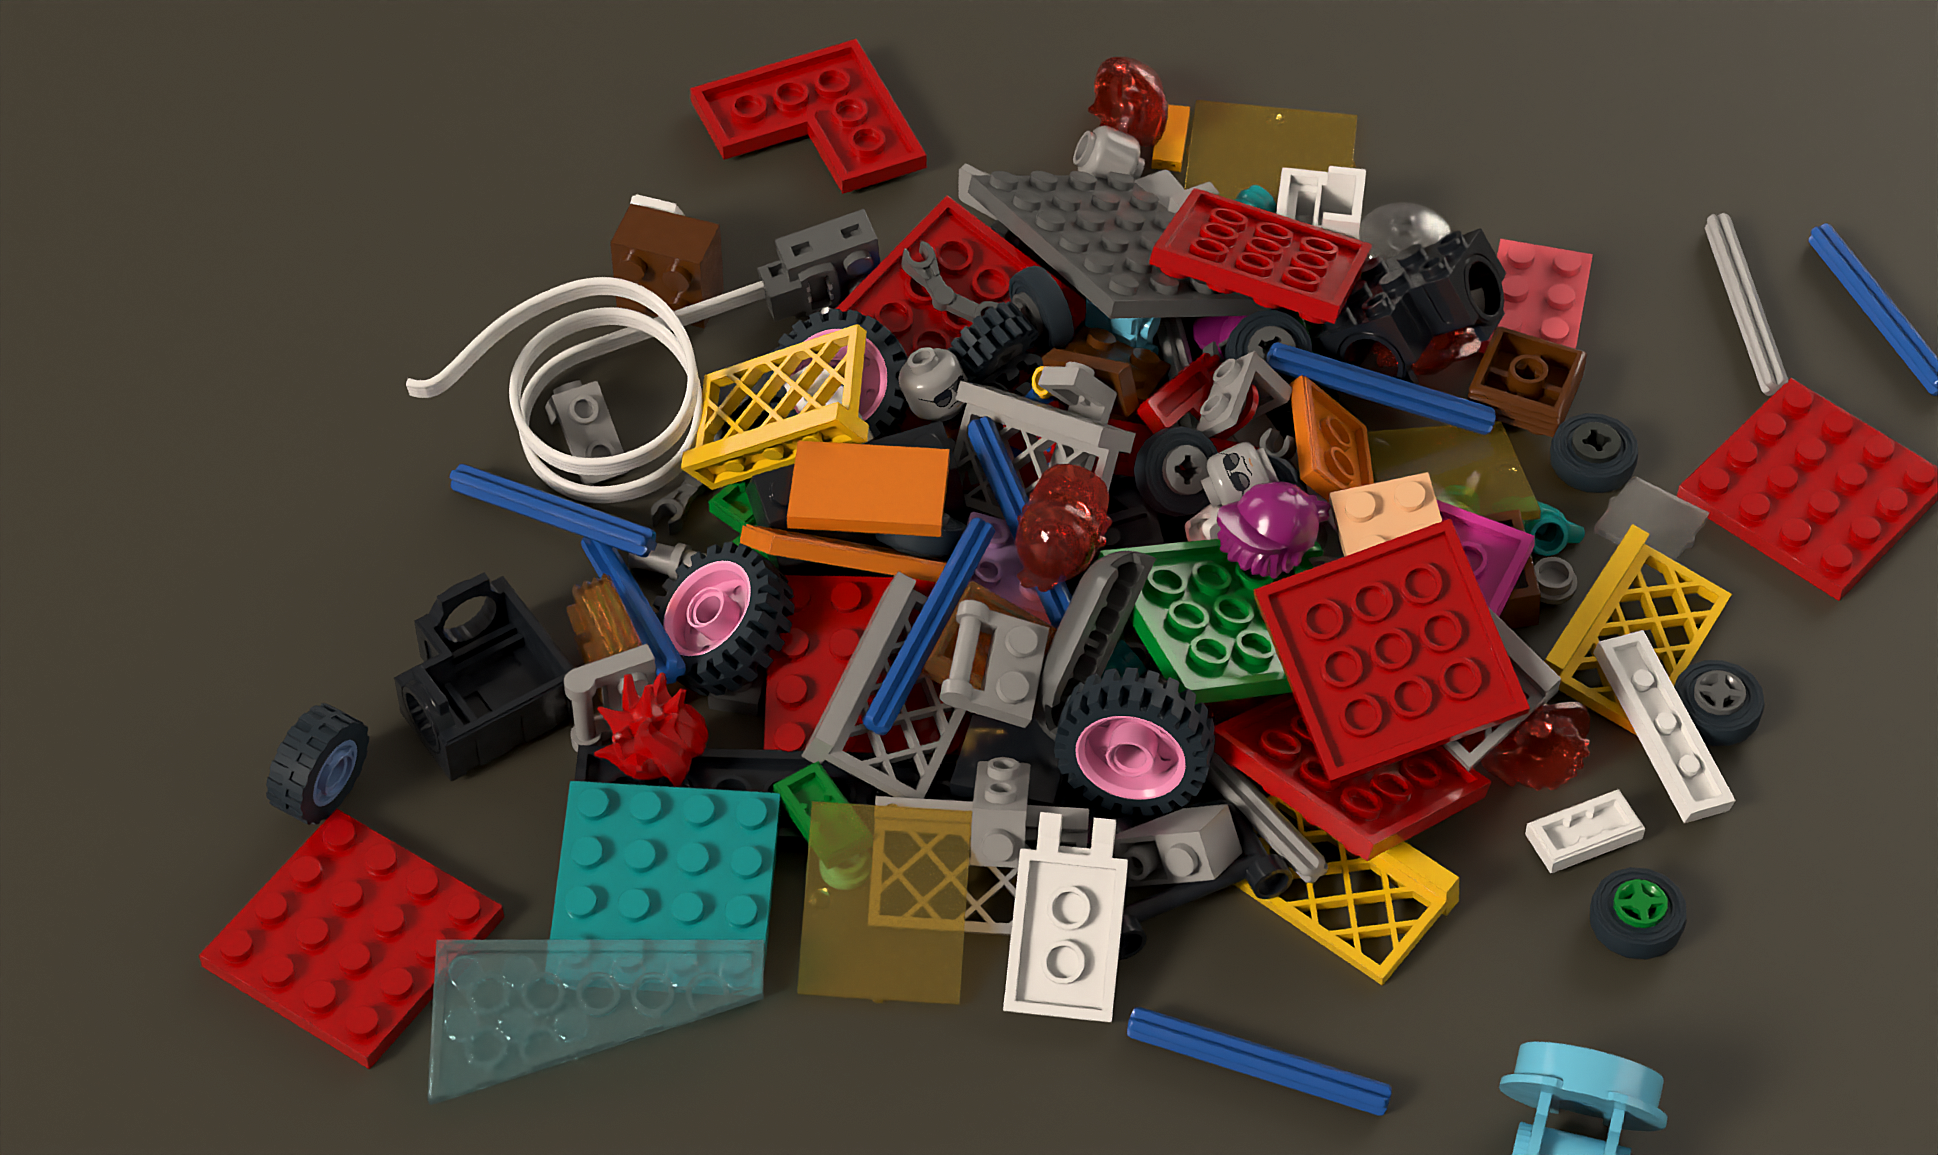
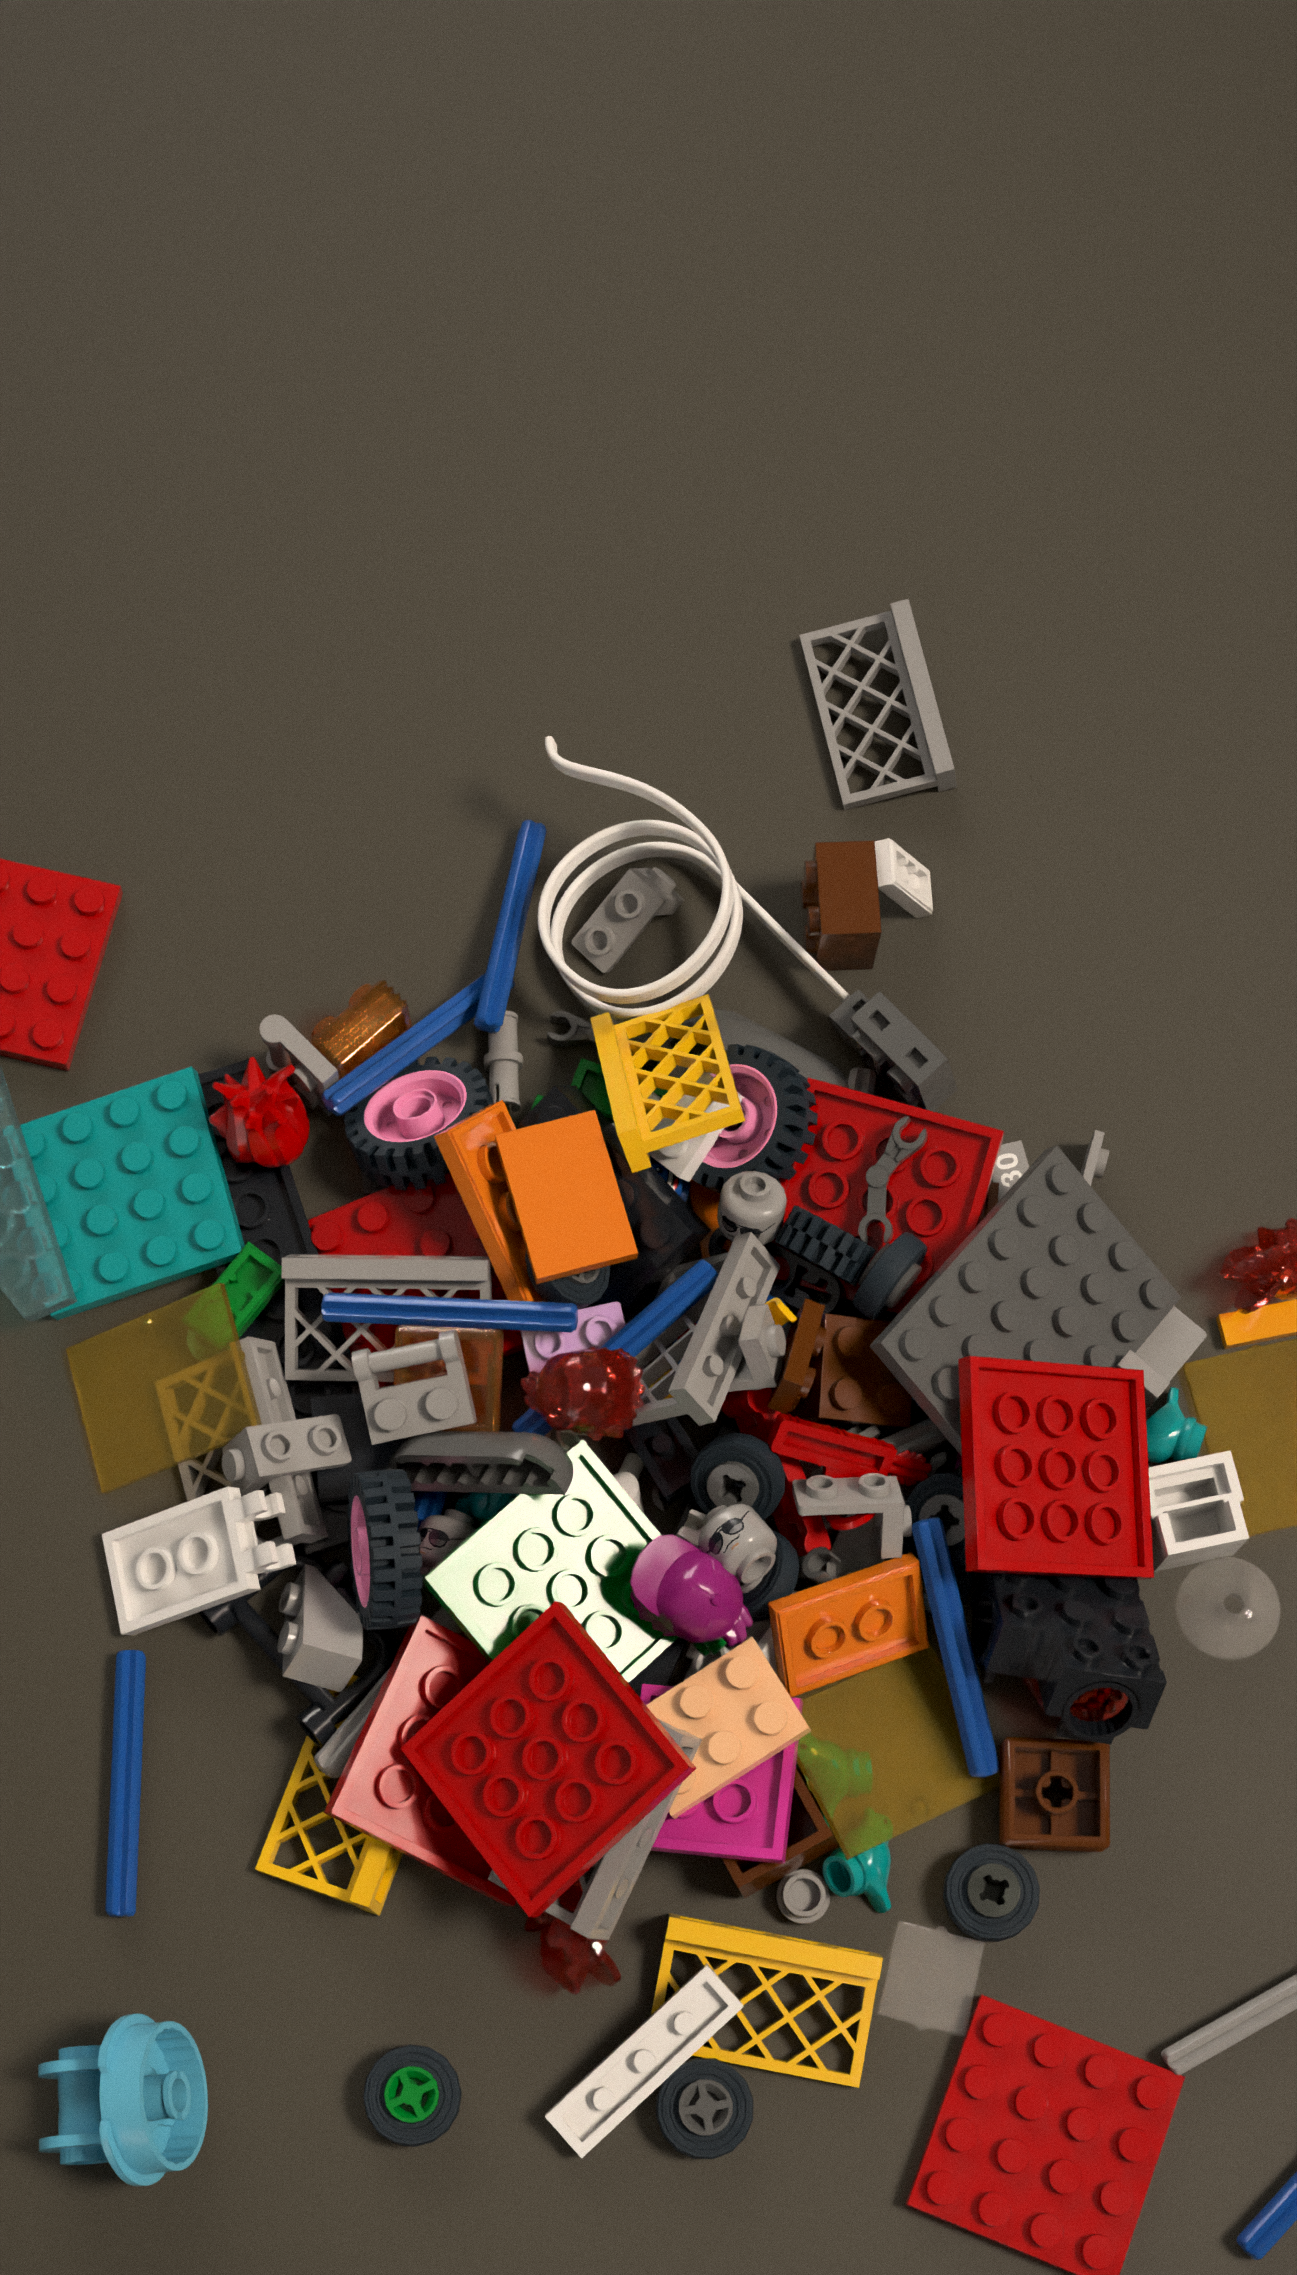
camera: 65 degrees right, 20 degrees up
(317, 764) = (137, 849): black wheel -> none
(483, 681) = (293, 951): black piece -> none
(489, 171) = (919, 708): none -> light grey fence
(821, 94) = (1156, 960): red plate -> none
(1108, 151) = (1189, 1270): light grey head -> none
(1543, 291) = (1190, 1774): coral plate -> none
(1584, 831) = (494, 2016): white plate -> none

